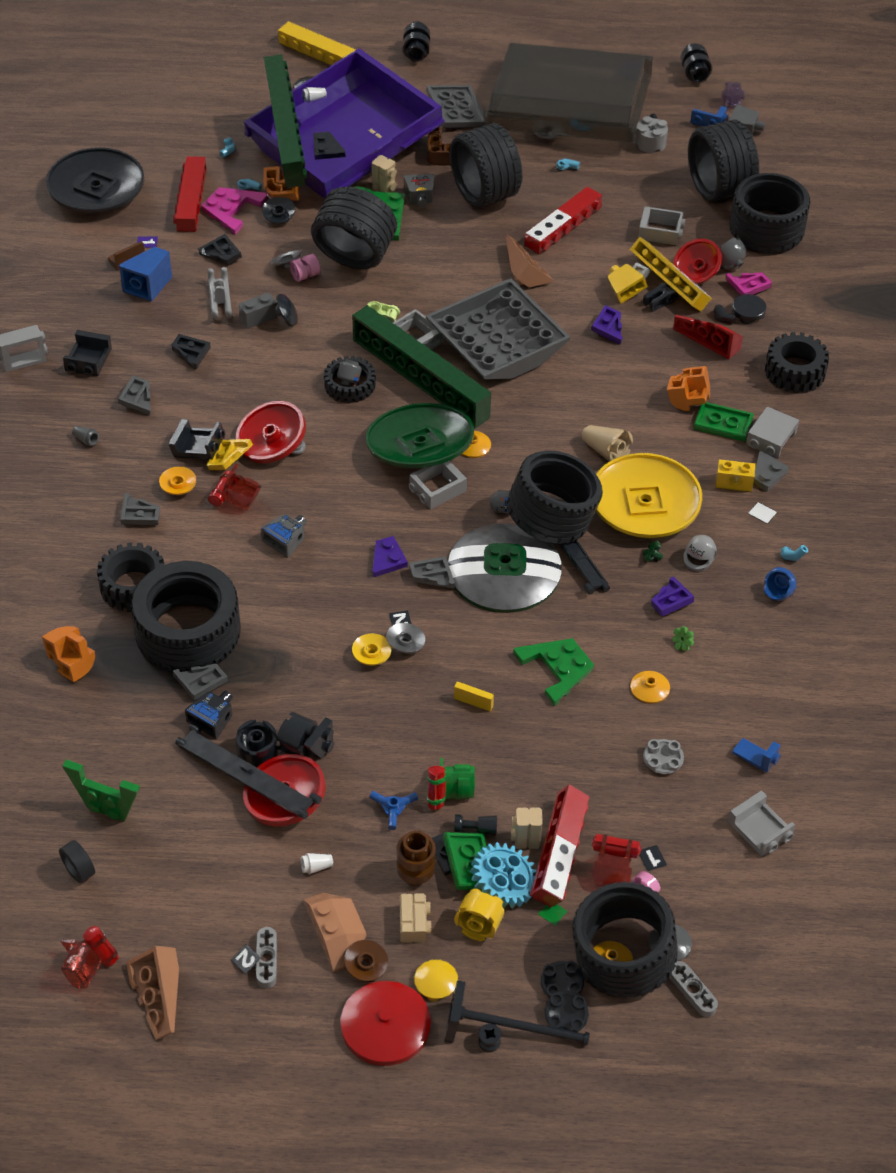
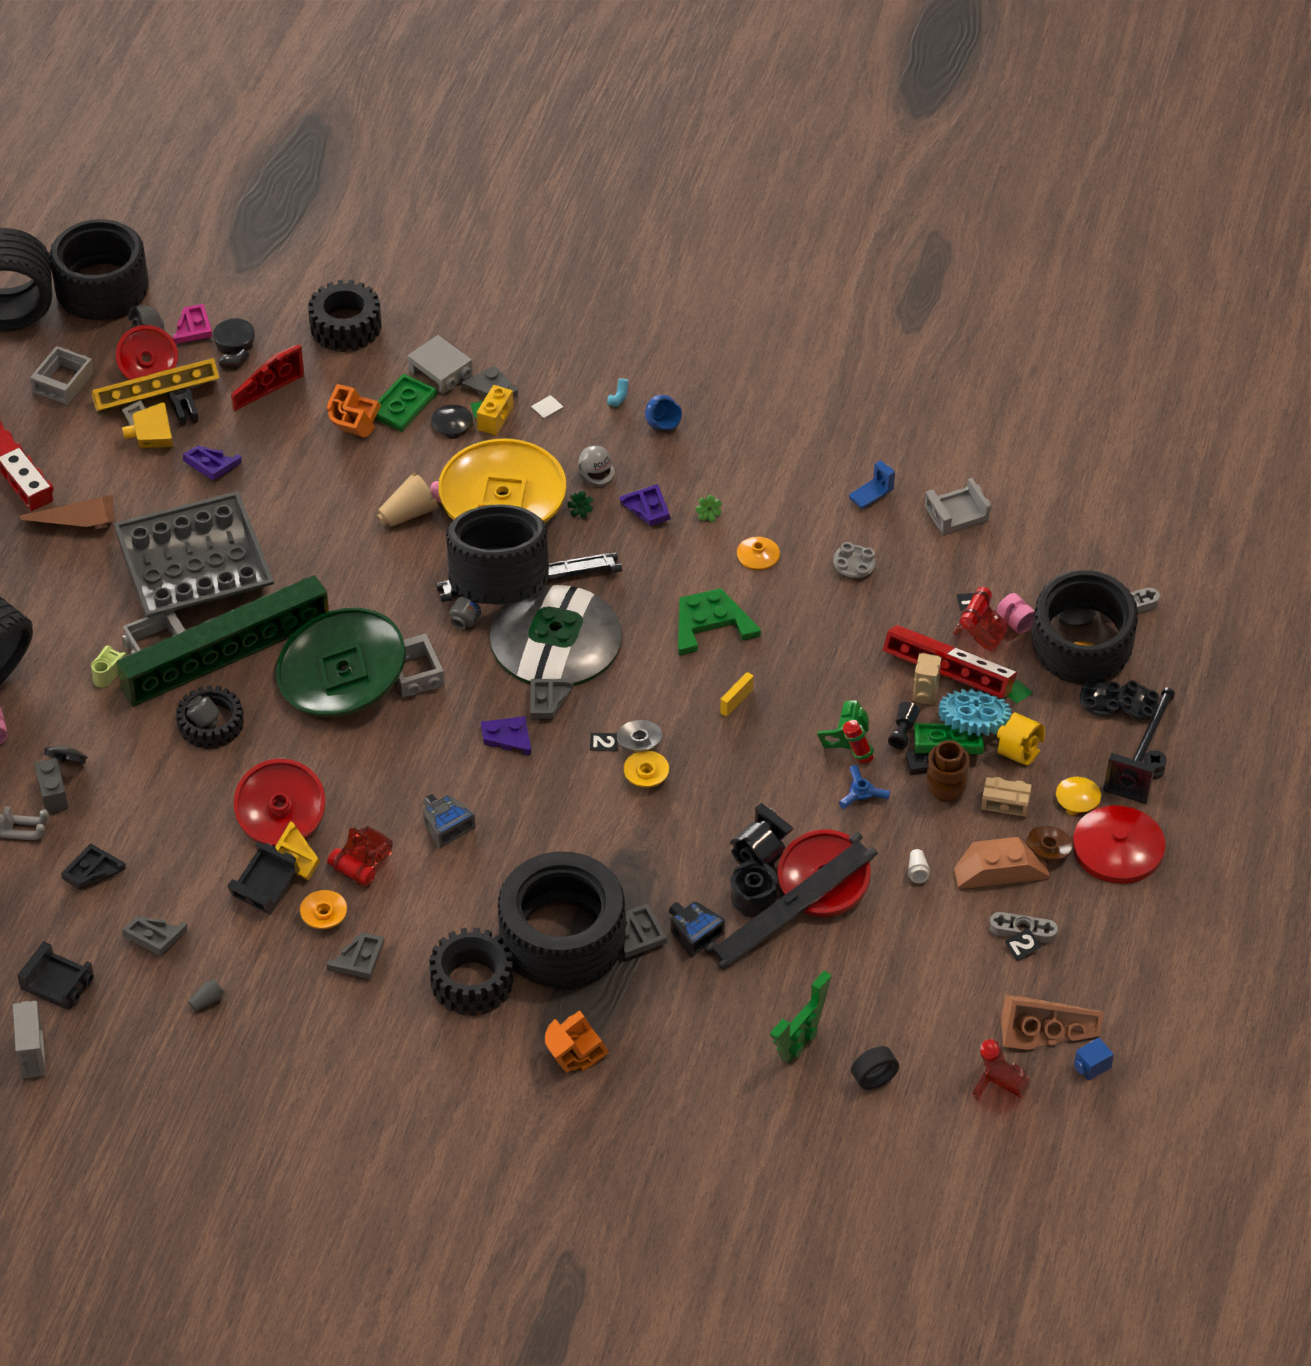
camera: 75 degrees left, 0 degrees up
(121, 1034) = (1093, 1059): none -> blue brick
(715, 450) = (452, 420): none -> black dish

